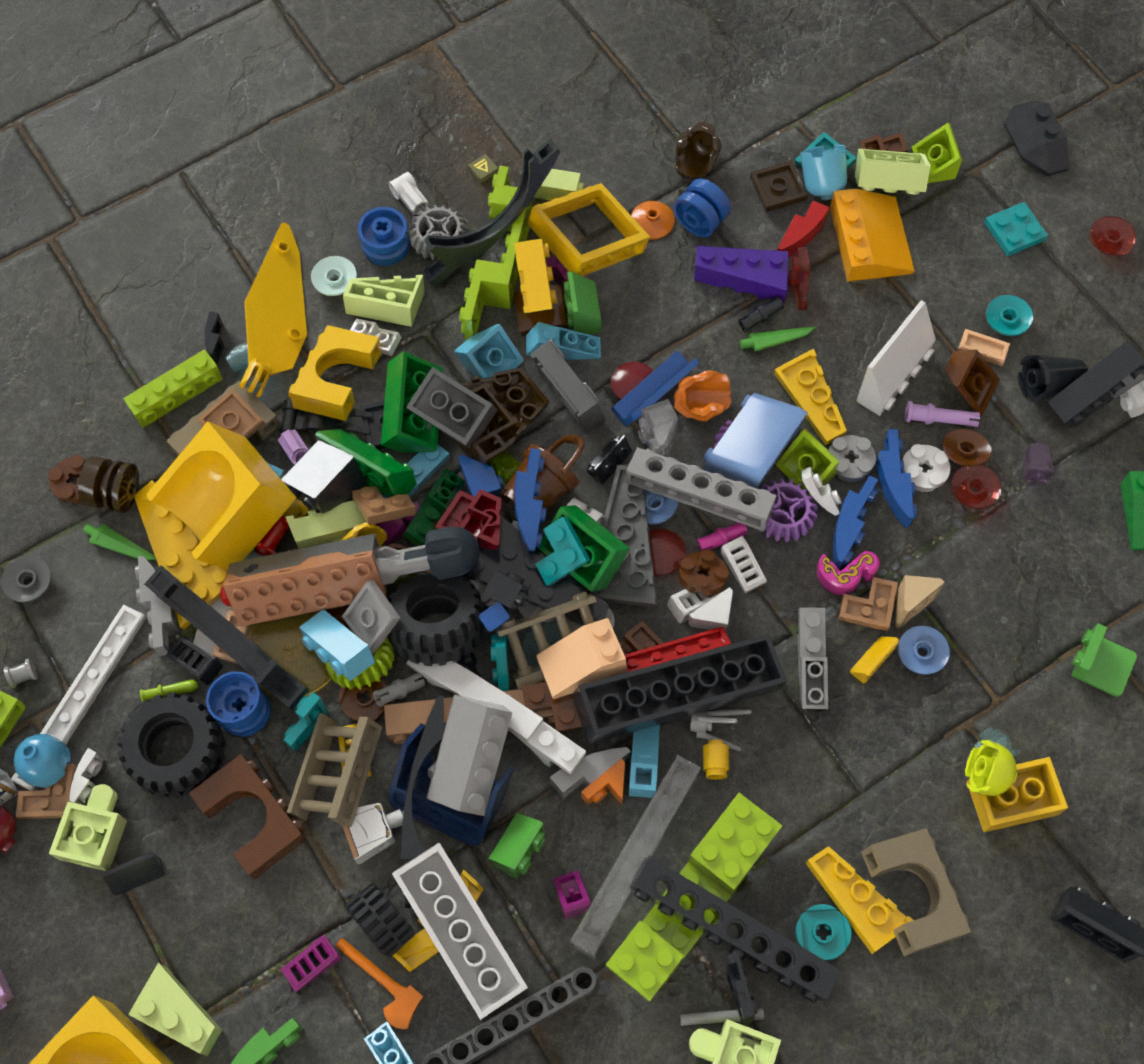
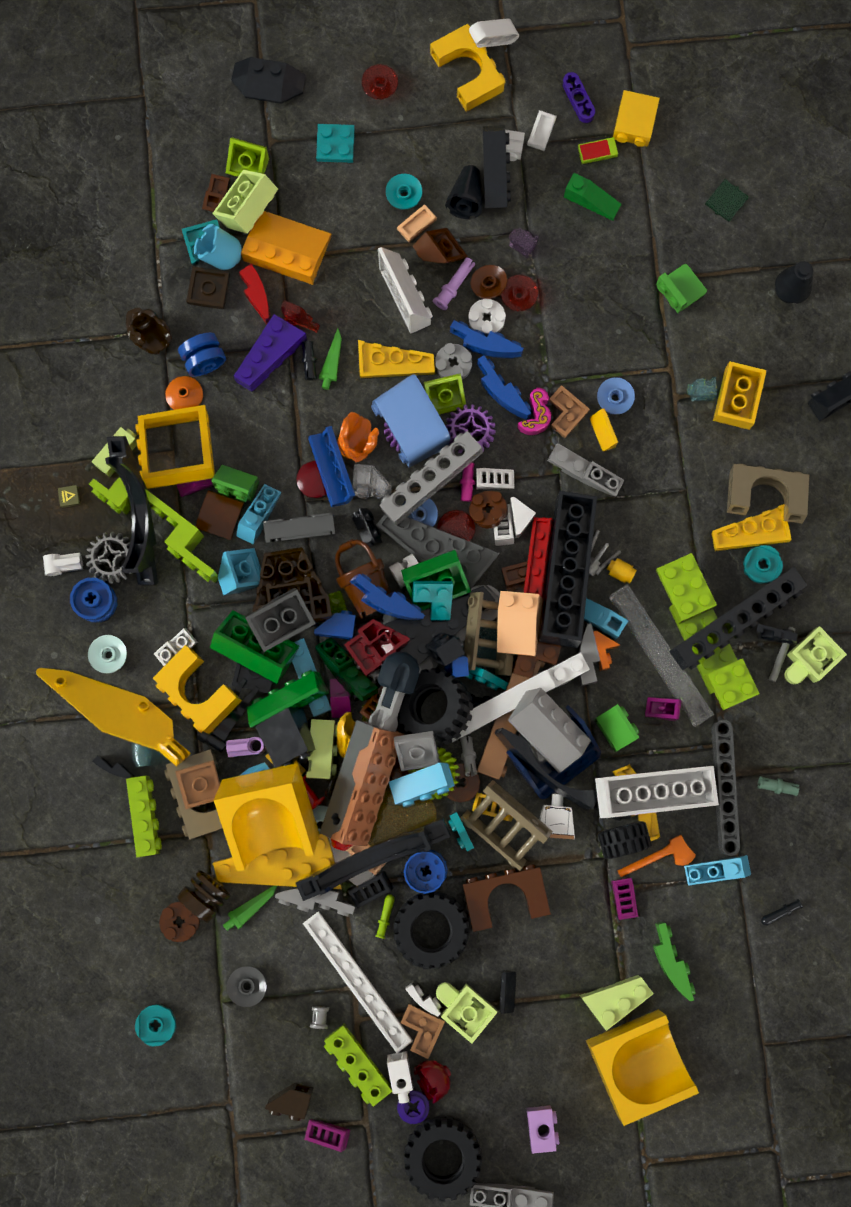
camera: 65 degrees left, 15 degrees up
(41, 760) = (397, 1025): dark azure cylinder -> none
(377, 509) = (332, 709): medium nougat plate -> none
(385, 300) = (151, 625): yellowish green wedge -> none
(535, 275) = (203, 507): yellow wedge -> none
(822, 494) = (472, 398): white slope -> none
(913, 596) = (580, 382): tan slope -> none
(990, 769) = (723, 403): neon yellow cylinder -> none

